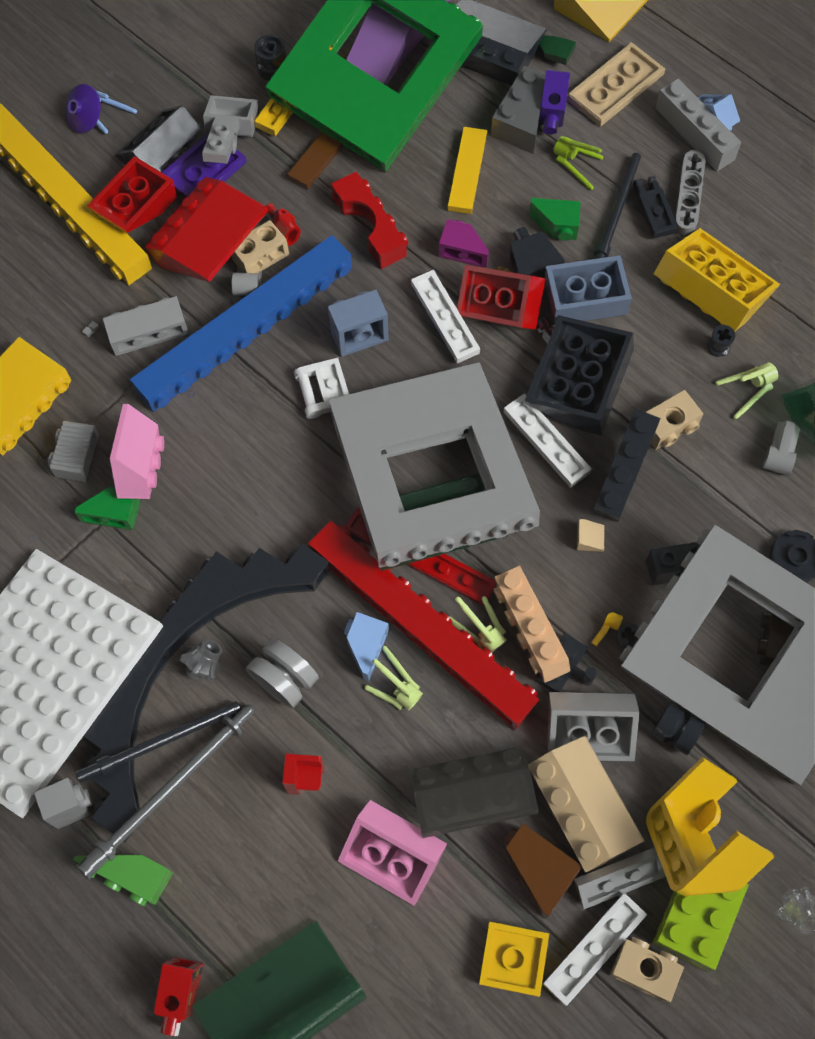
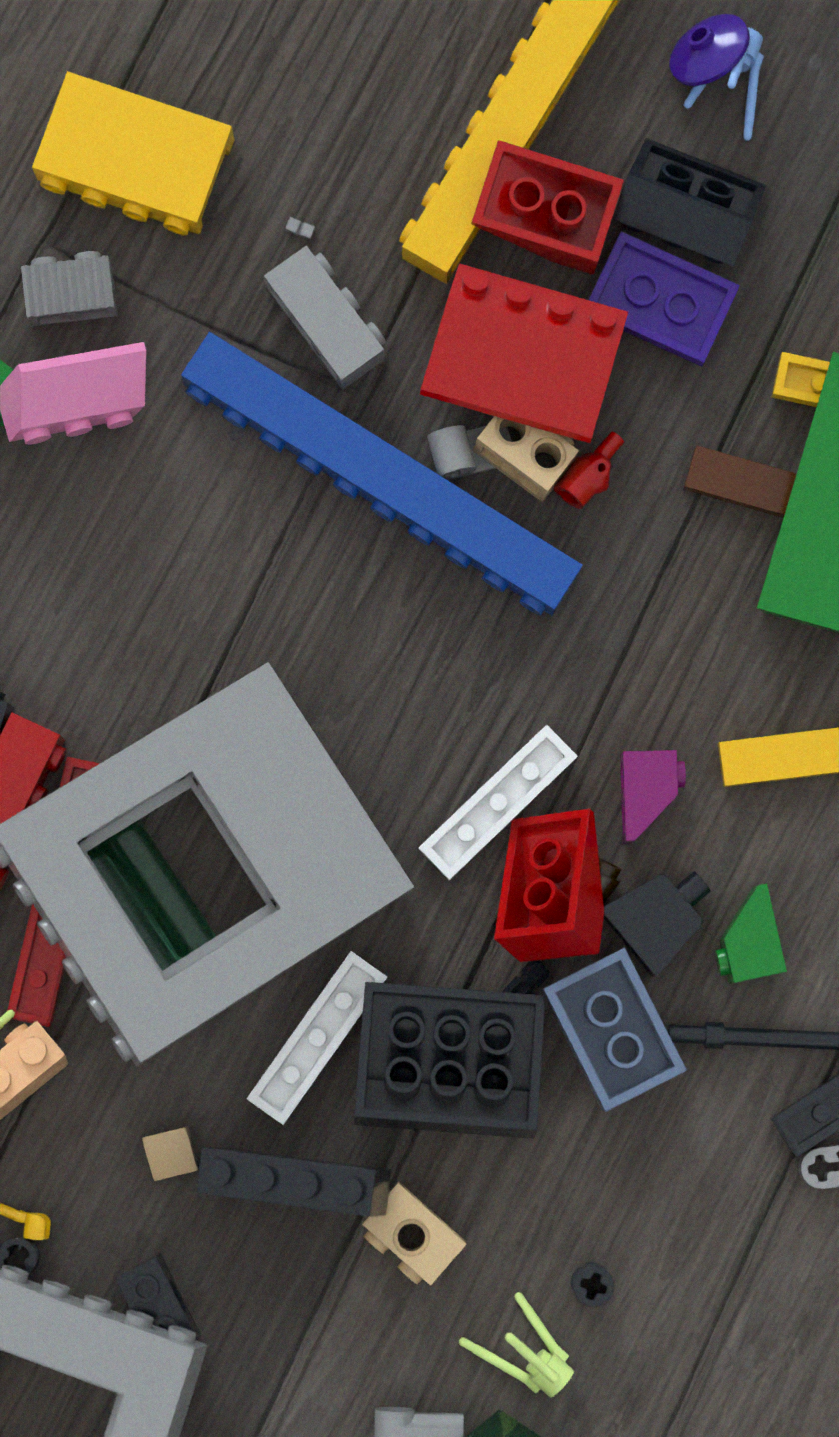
camera: 70 degrees right, 15 degrees up
(225, 121) = (771, 305): light grey plate -> none
(330, 383) = (311, 654): white plate -> none
(355, 198) = (682, 575): red arch -> none
(358, 322) = (426, 663): sand blue brick -> none
(715, 279) = (717, 1249): yellow slope -> none

